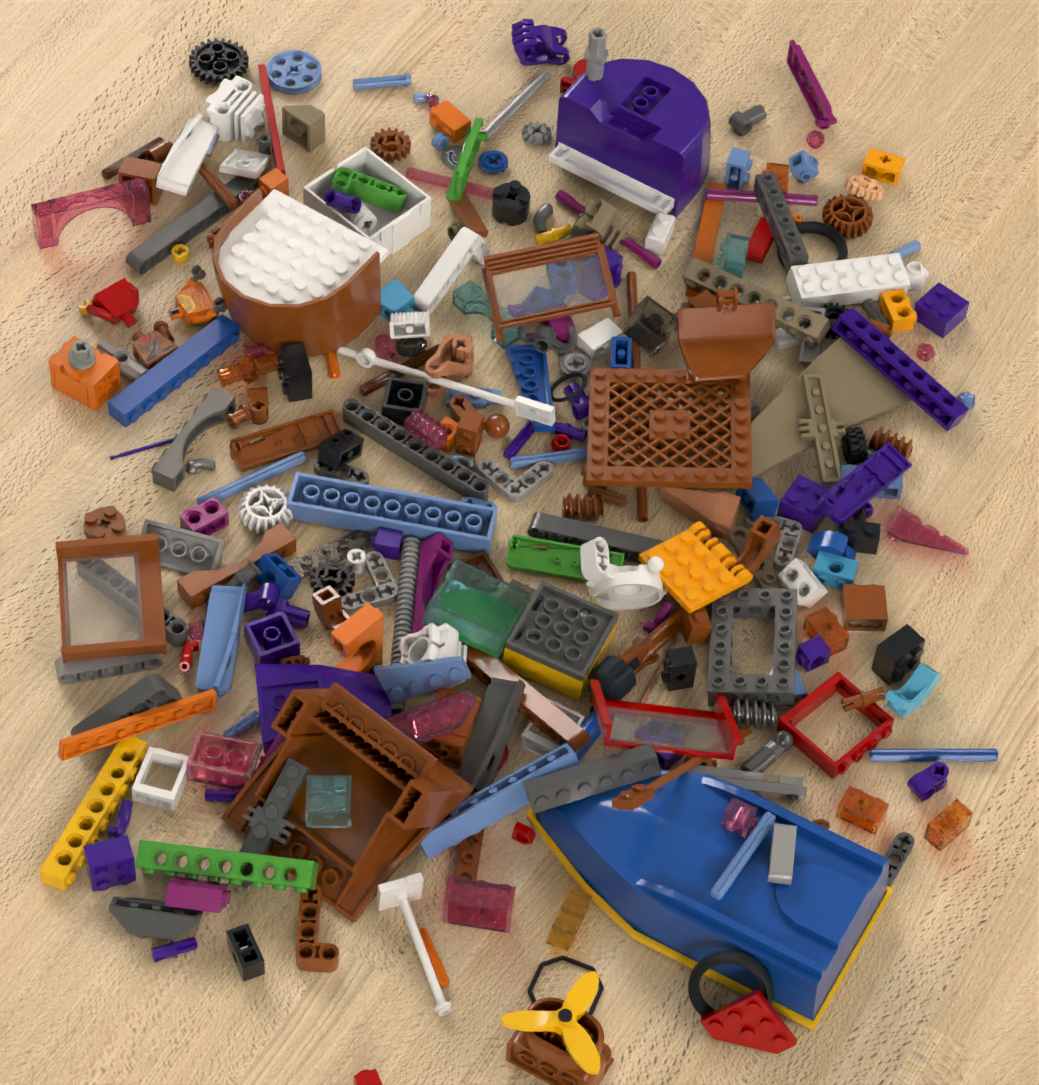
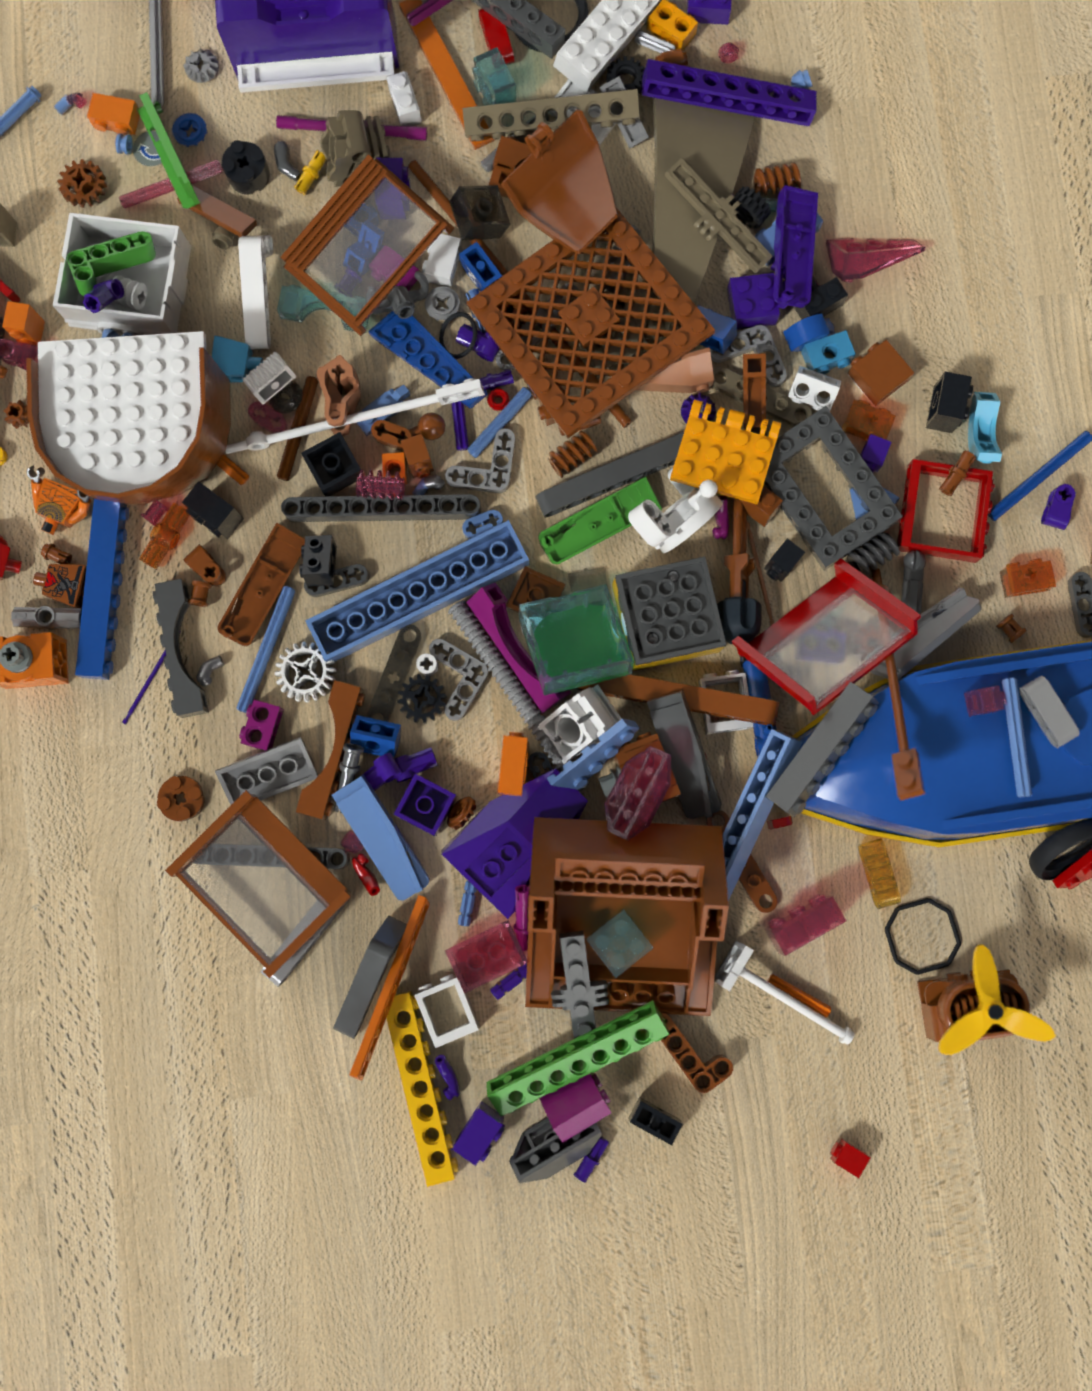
camera: 30 degrees left, 30 degrees up
(329, 608) = (452, 735): dark orange brick -> none
(388, 543) = (437, 624): dark purple brick -> none

